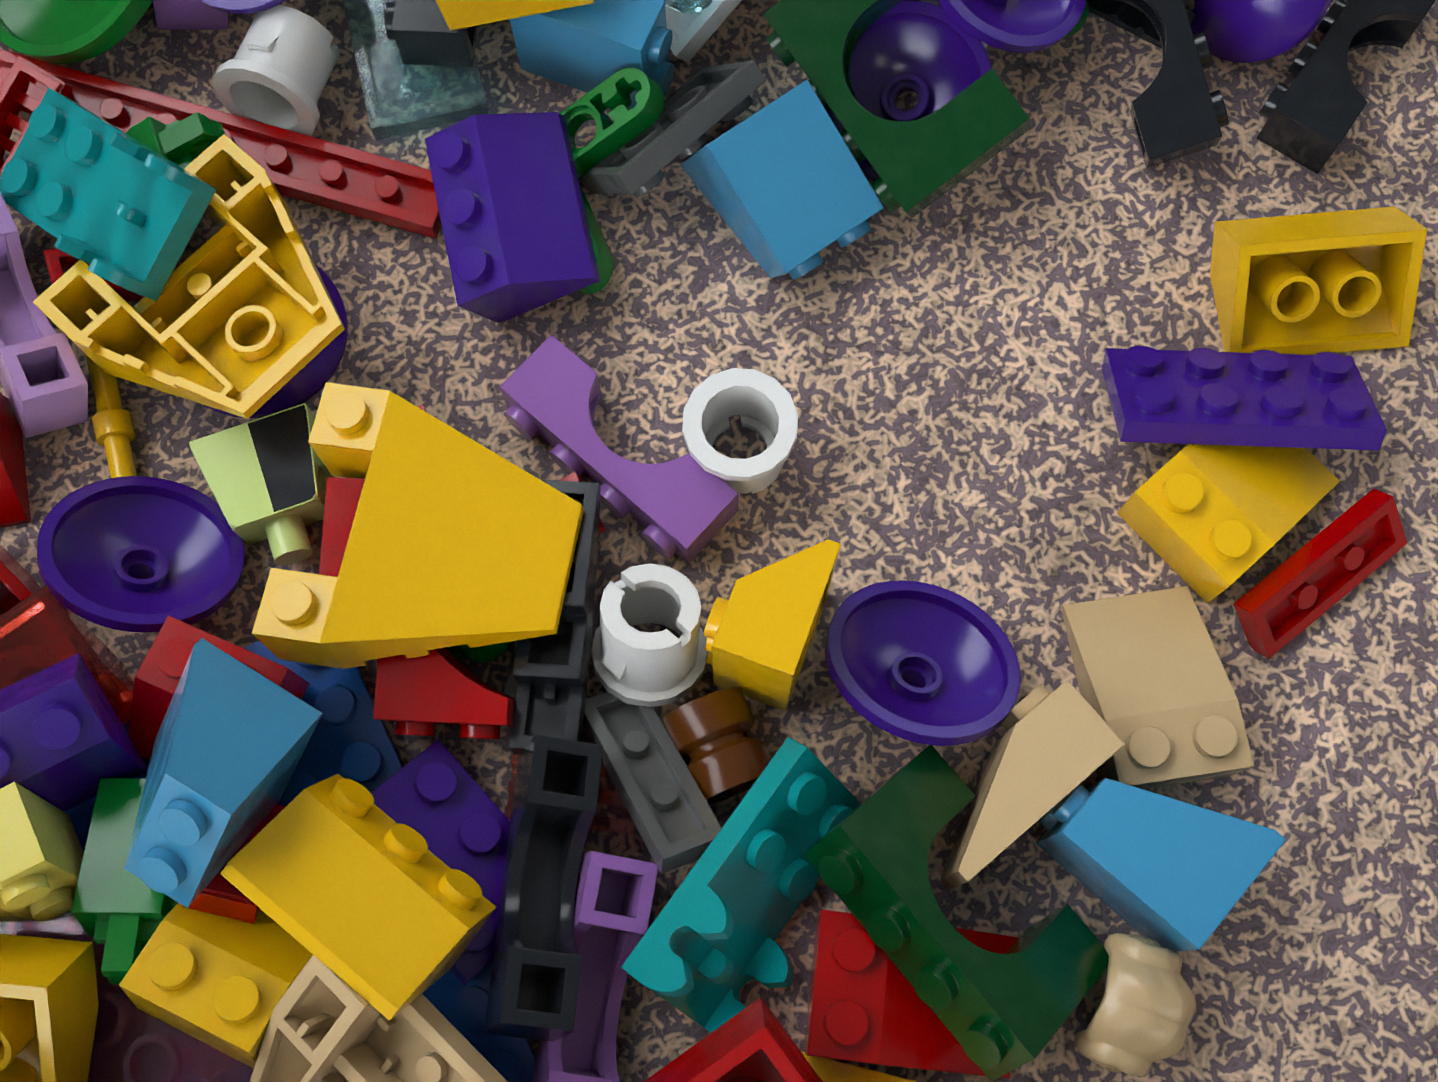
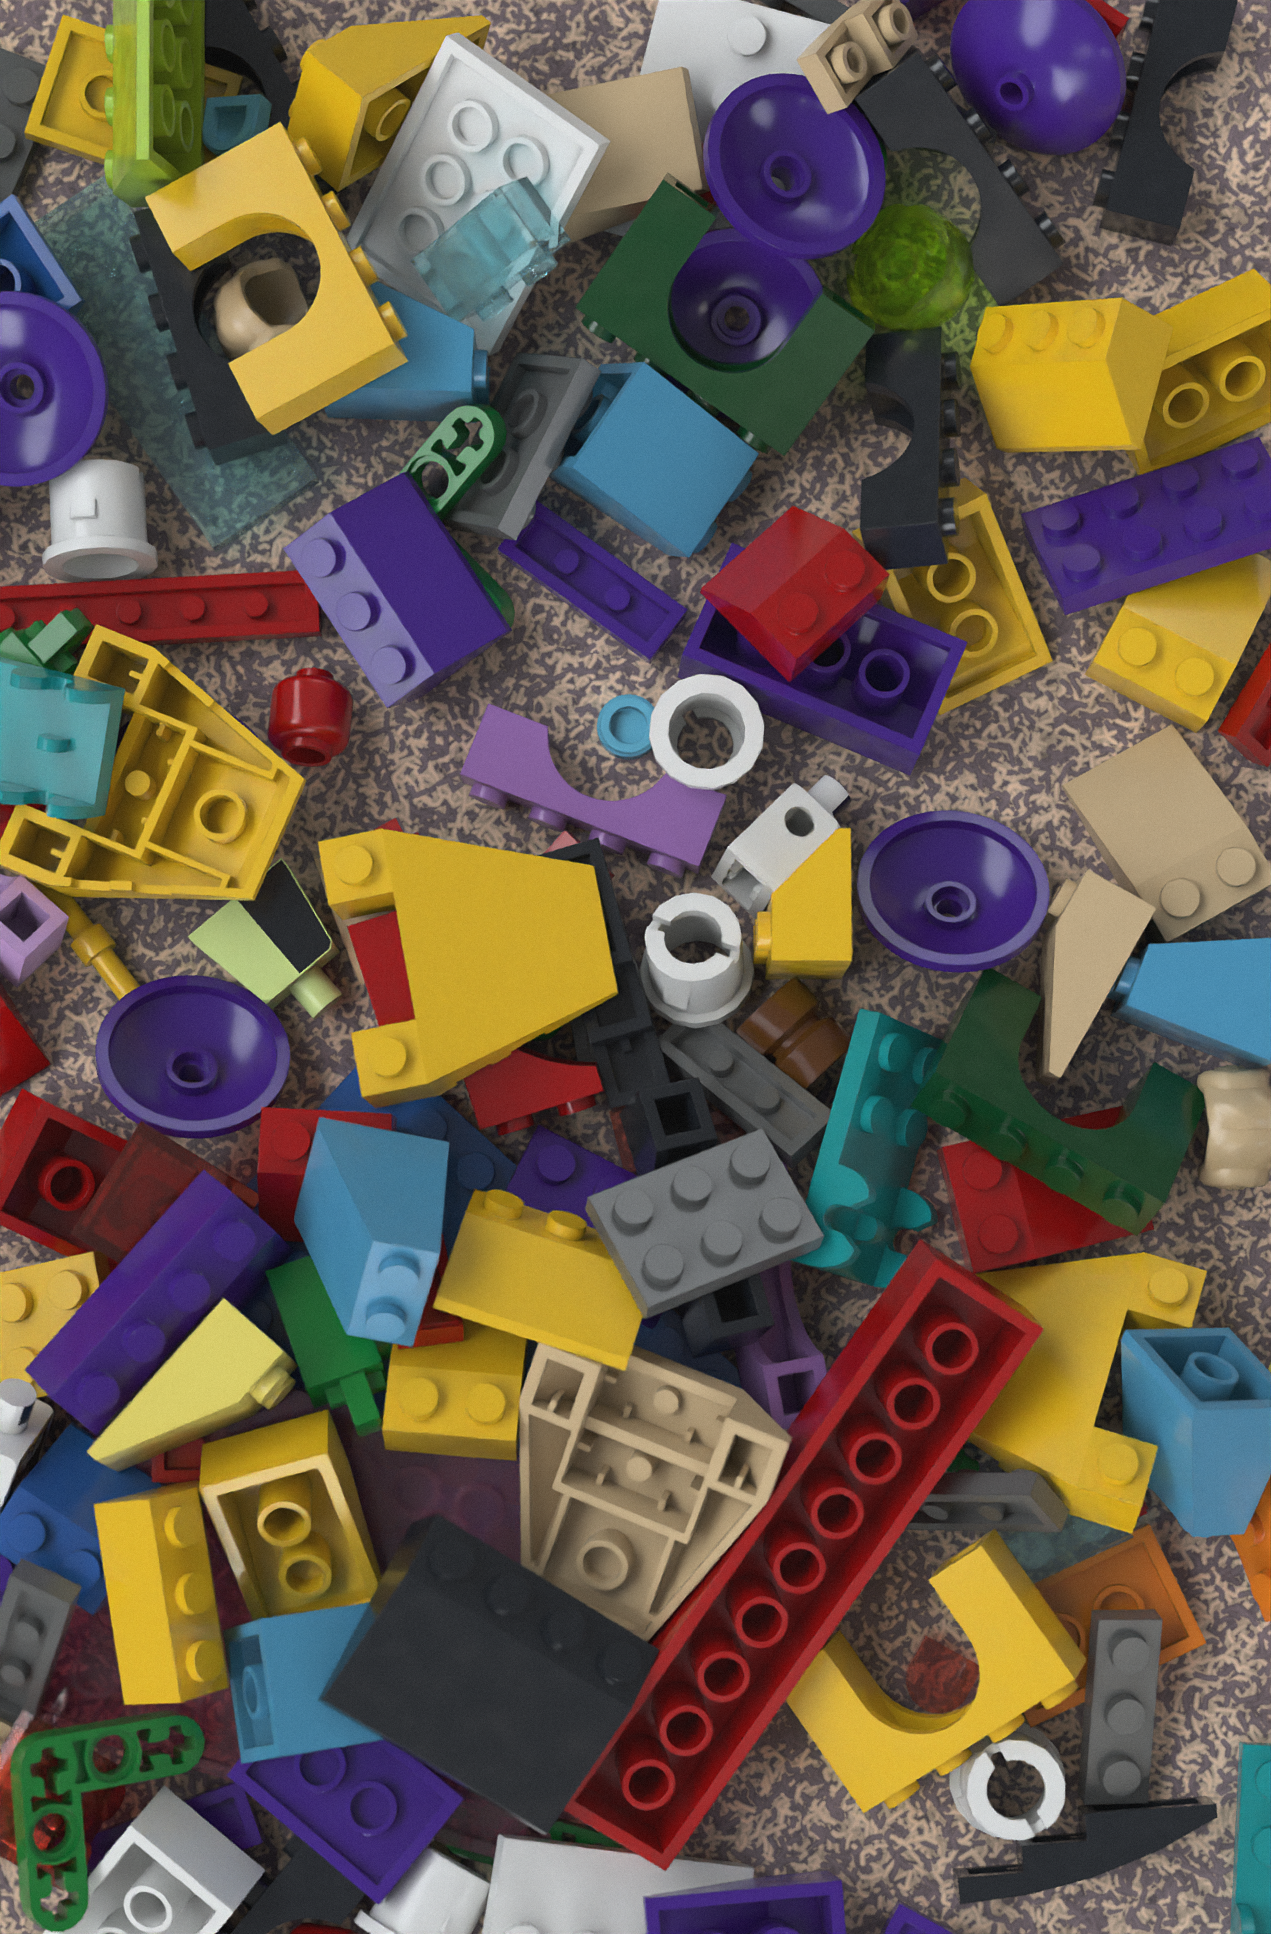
camera: 20 degrees left, 10 degrees up
(391, 298) = (310, 717): none -> red head
(542, 895) = (703, 1223): none -> dark grey plate
(665, 408) = (625, 726): none -> medium azure tile
(693, 272) = (594, 583): none -> dark purple plate
(766, 540) = (769, 851): none -> white torso
(876, 326) = (797, 589): none -> red slope
(879, 405) = (865, 692): none -> dark purple slope
(1013, 277) = (908, 504): none -> black arch
(1020, 396) = (974, 600): none -> yellow slope
(1081, 101) = (911, 269): none -> clear neon green cylinder
(1201, 223) = (1069, 374): none -> yellow slope

